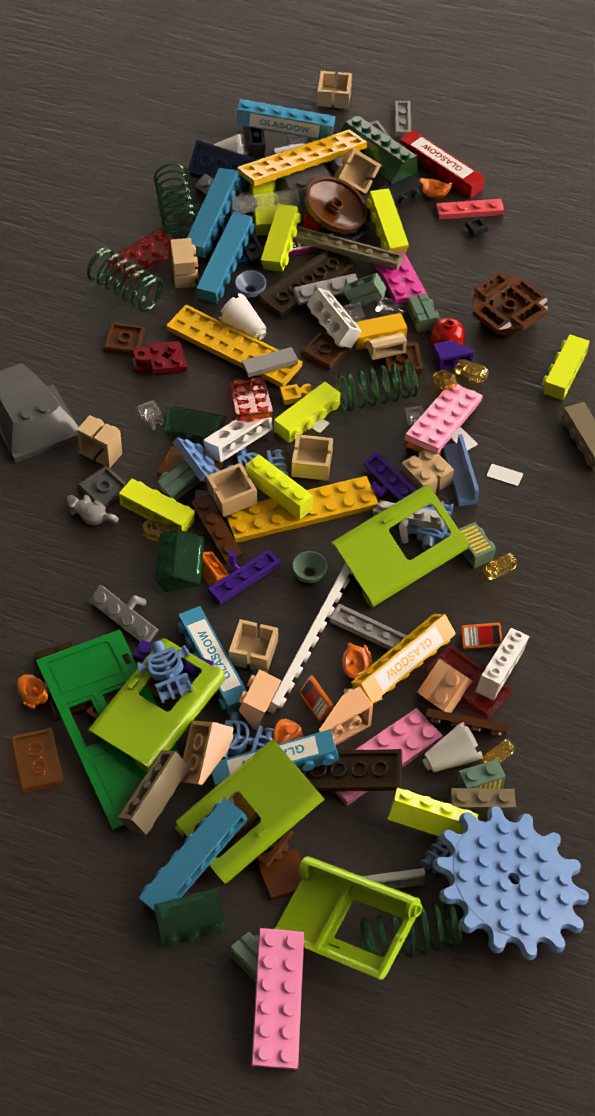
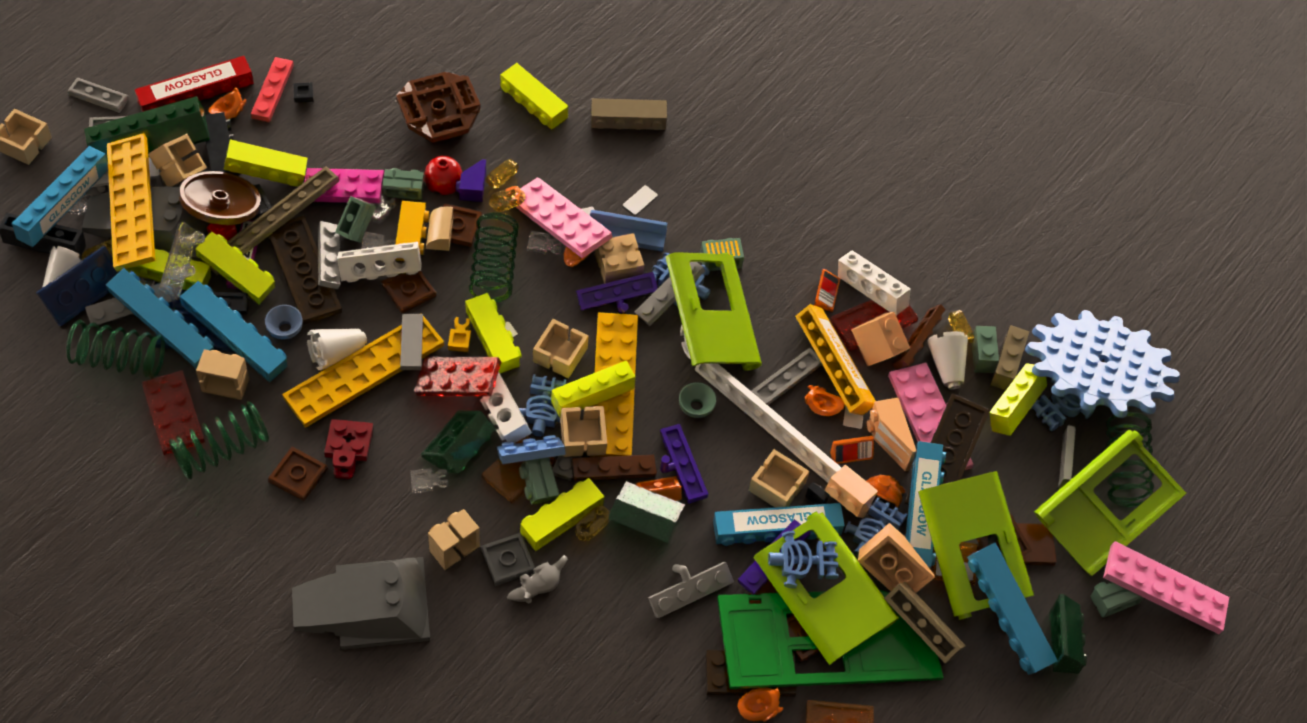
camera: 75 degrees left, 5 degrees up
(500, 566) = (754, 244): clear yellow beam -> none

